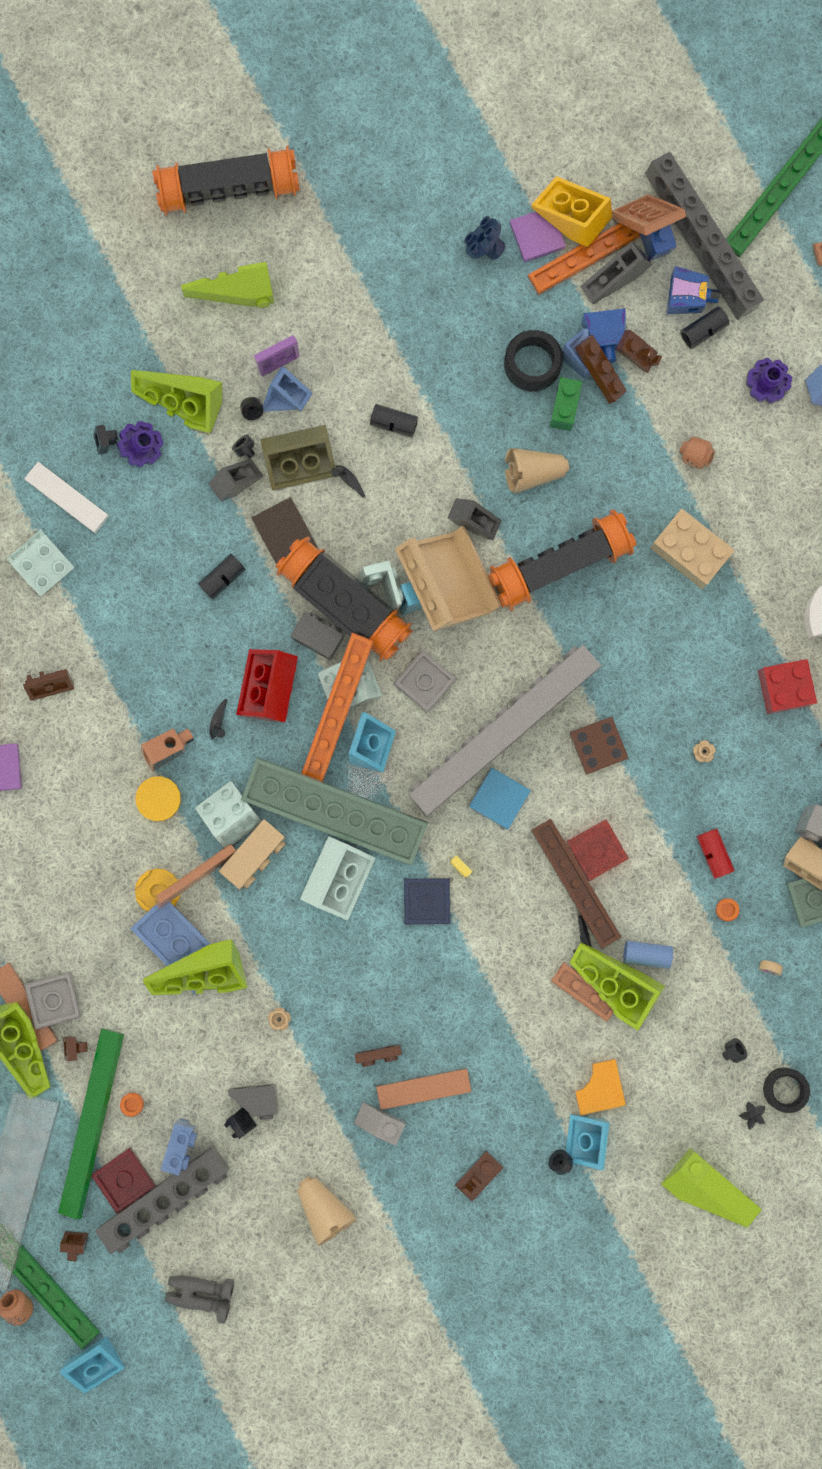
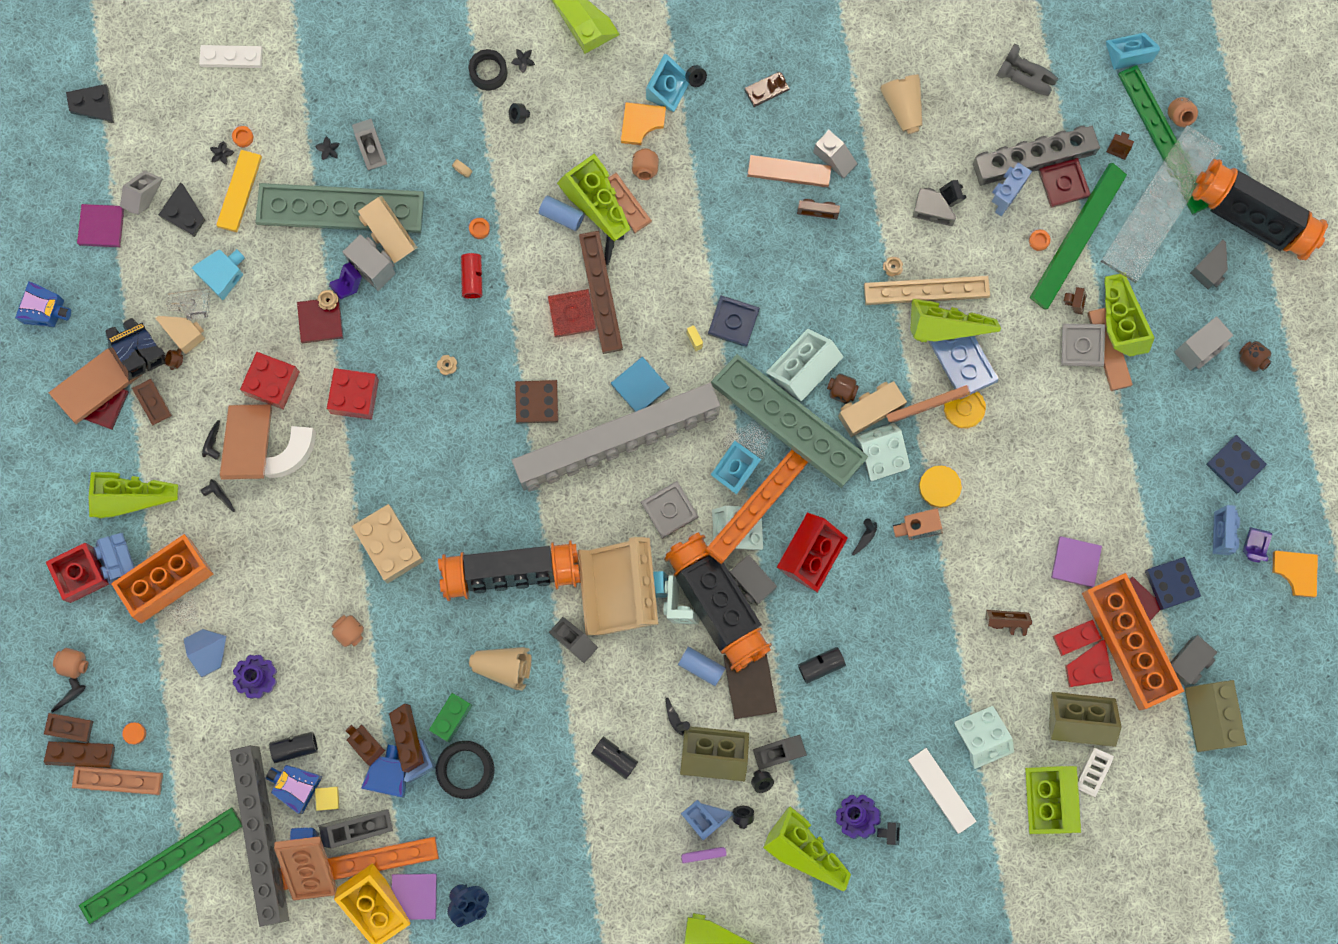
camera: 160 degrees left, 5 degrees down
(235, 1004) = (927, 290): none -> tan plate
(290, 866) = (843, 388): none -> reddish brown head
(339, 535) = (701, 666): none -> medium blue pin
(579, 1040) = (645, 164): none -> nougat head
(653, 293) = (327, 798): none -> light yellow tile

